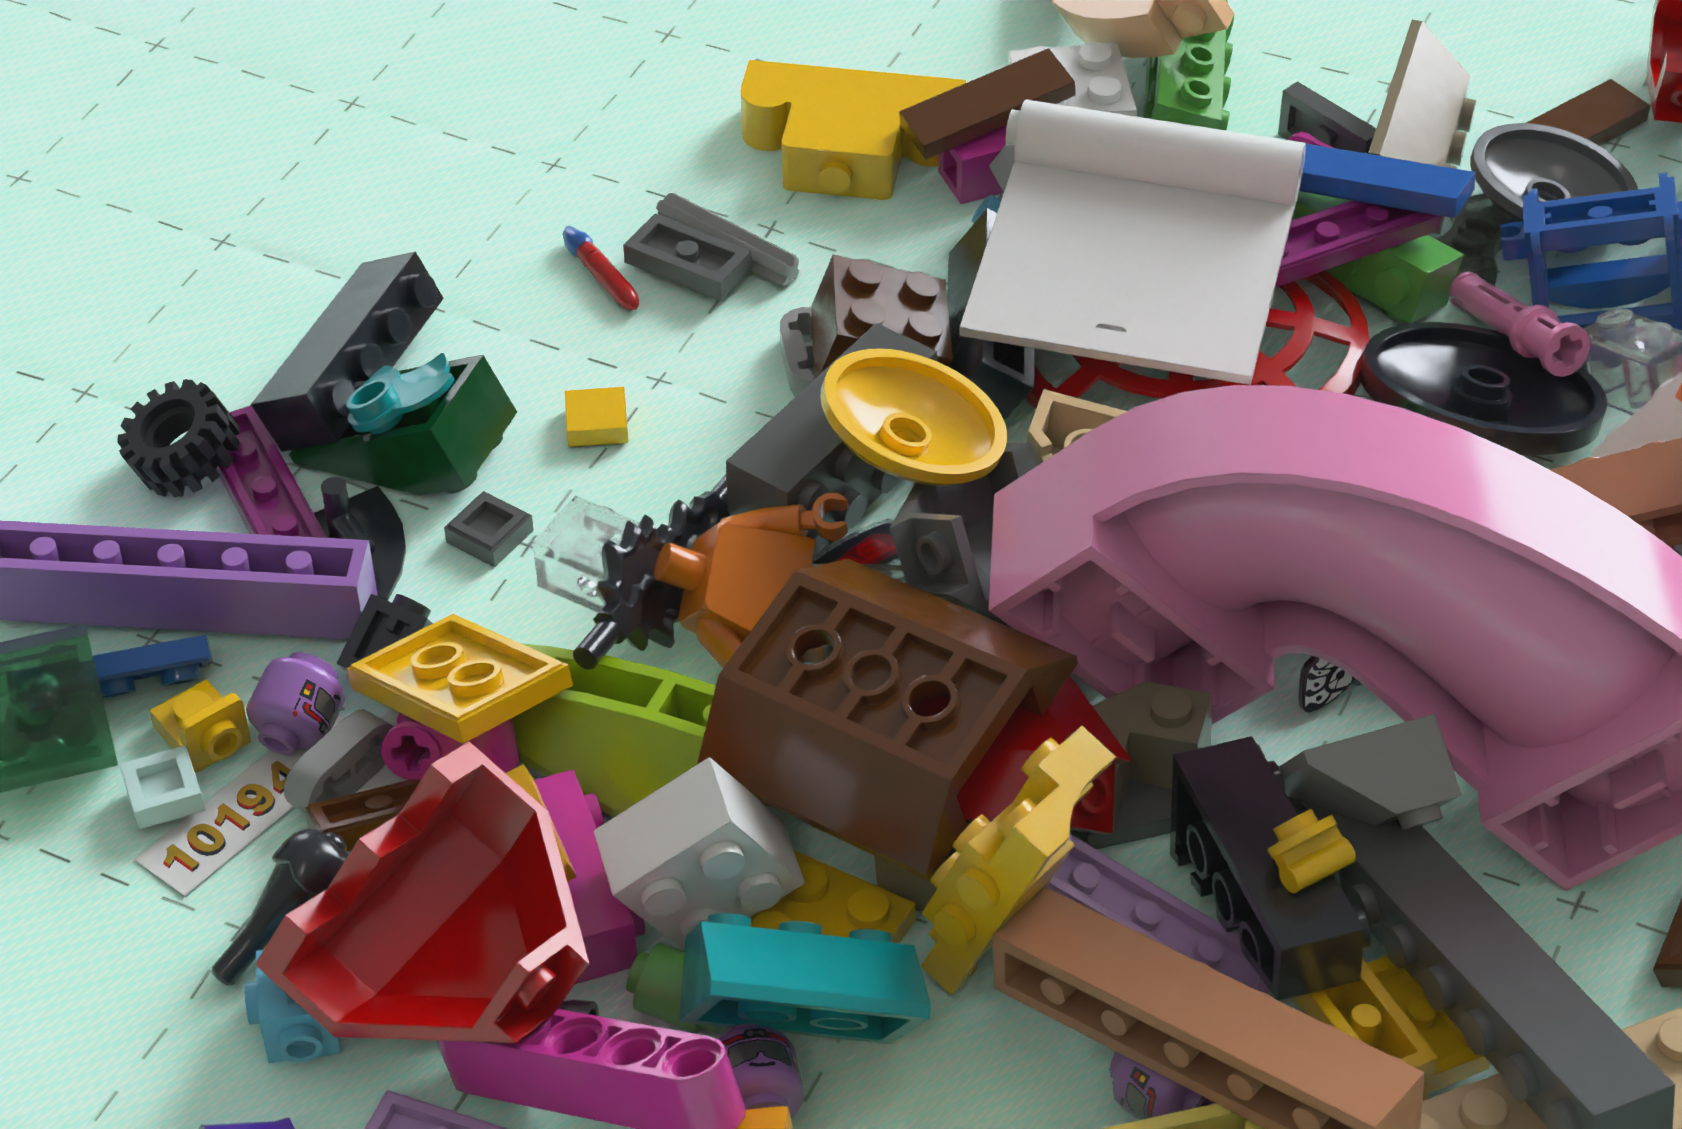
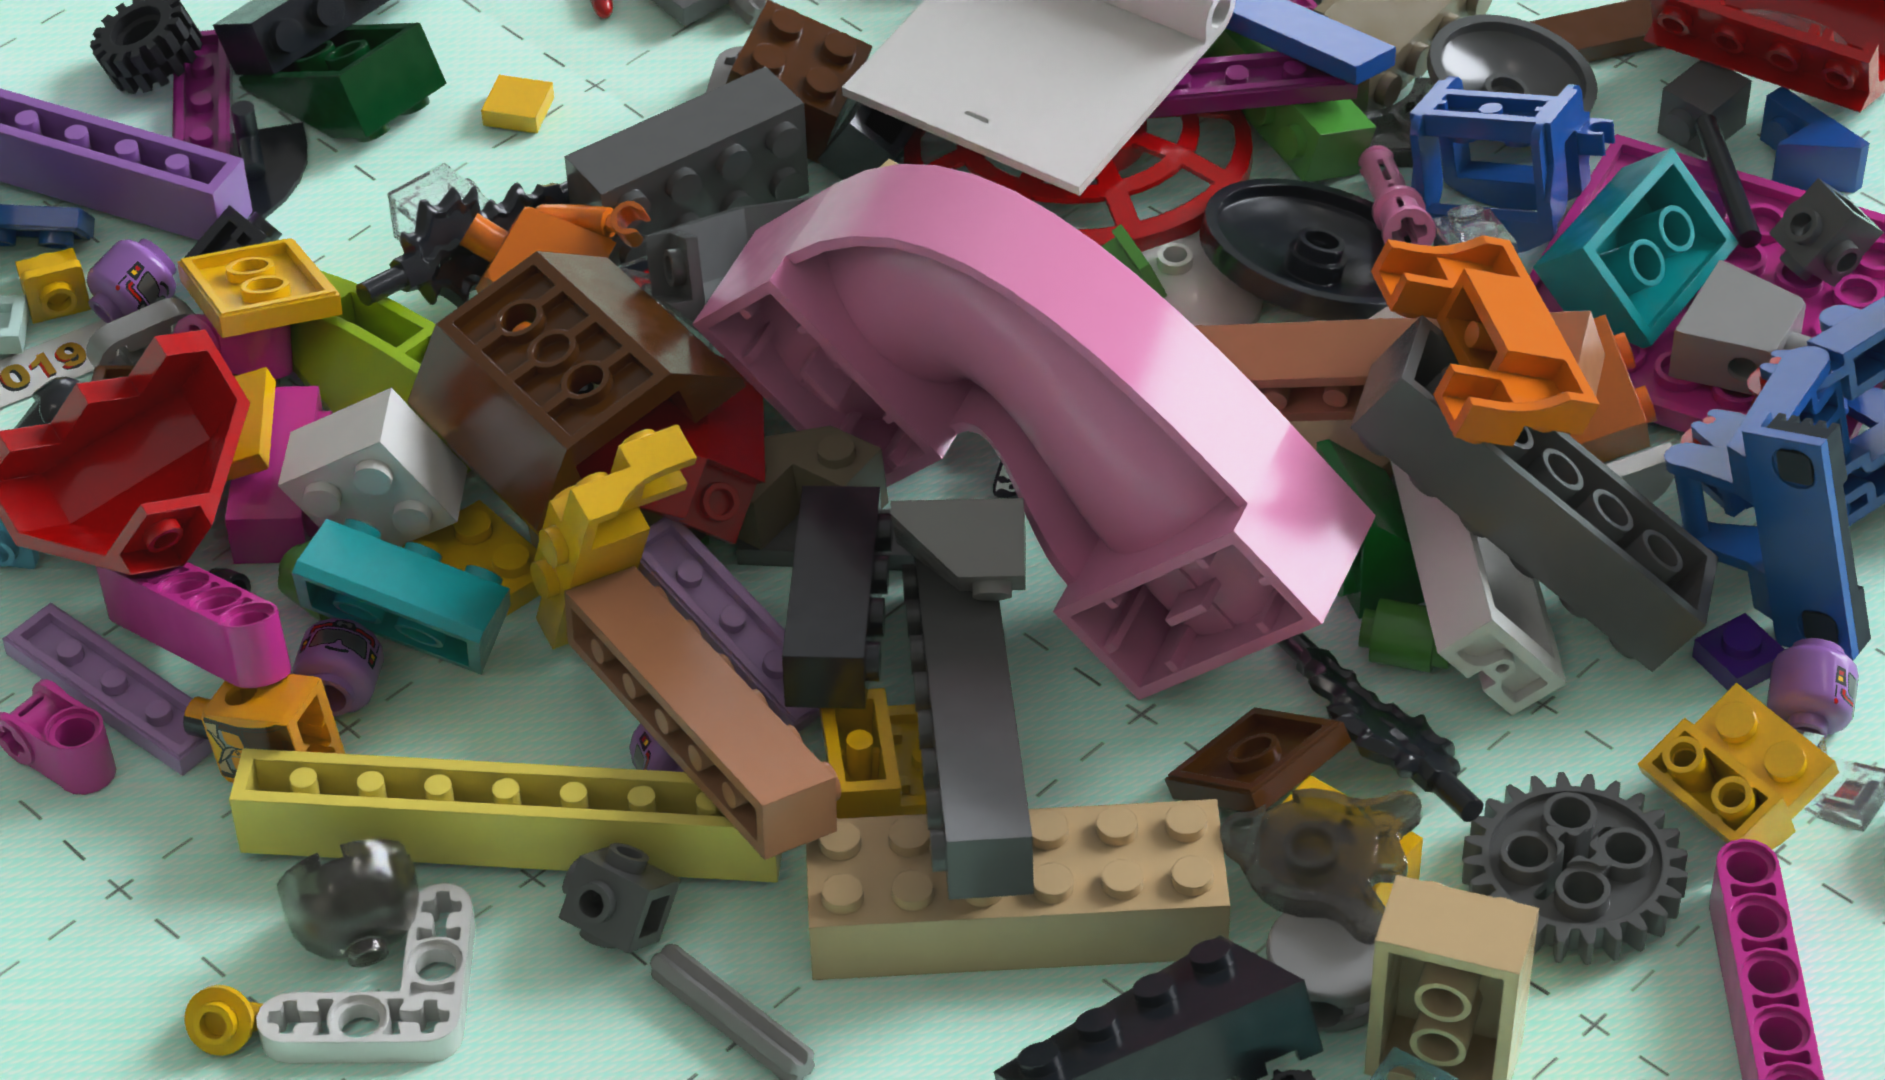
camera: 20 degrees right, 0 degrees up
(388, 394) = (317, 44): teal plate -> none
(489, 529) = (371, 177): dark grey tile -> none
(913, 417) = (735, 150): yellow dish -> none
(1309, 850) = (850, 581): yellow plate -> none

